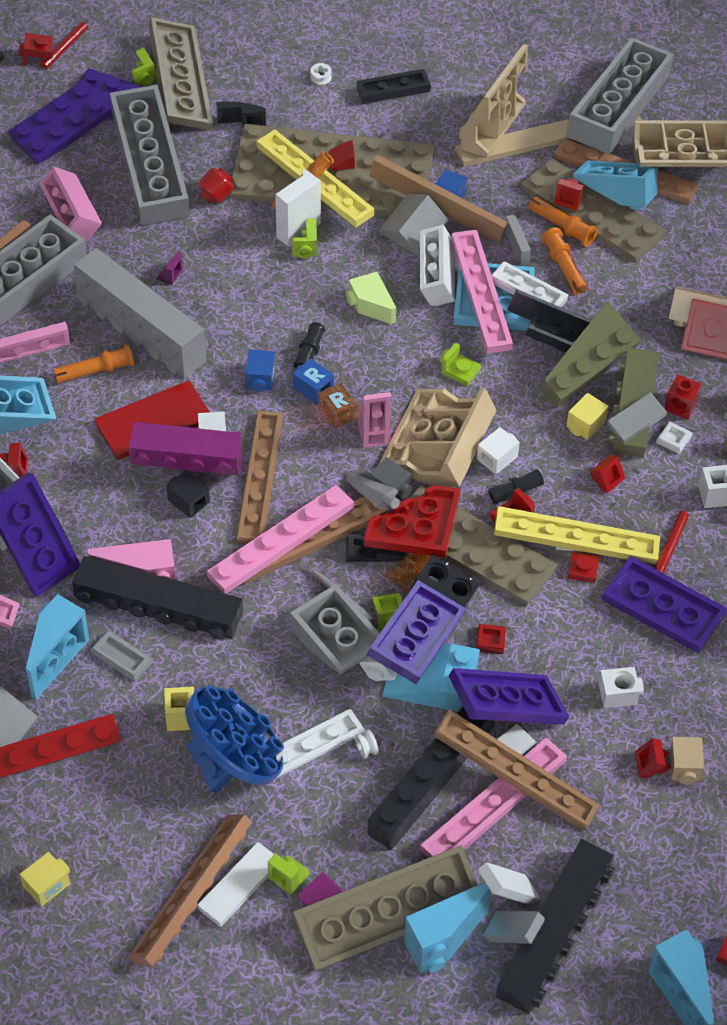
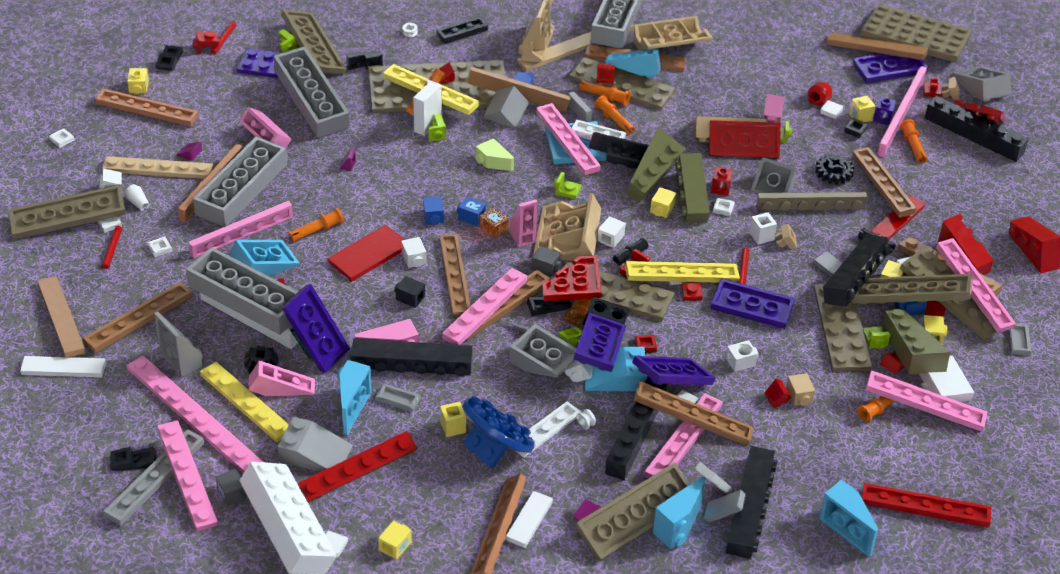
camera: 15 degrees left, 10 degrees down
(61, 122) = (239, 83): dark purple plate -> none
(140, 313) = (339, 187): light grey brick -> none
(186, 448) = (402, 260): magenta slope -> none
(216, 185) = (362, 105): red head -> none
(287, 872) = (560, 504): lime bracket -> none
(310, 345) = (461, 190): black pin -> none
(375, 492) = (539, 268): light grey bar -> none
(437, 266) = (532, 129): white brick -> none
(608, 473) = (688, 233): red tile -> none
(637, 418) = (699, 194): light grey tile -> none

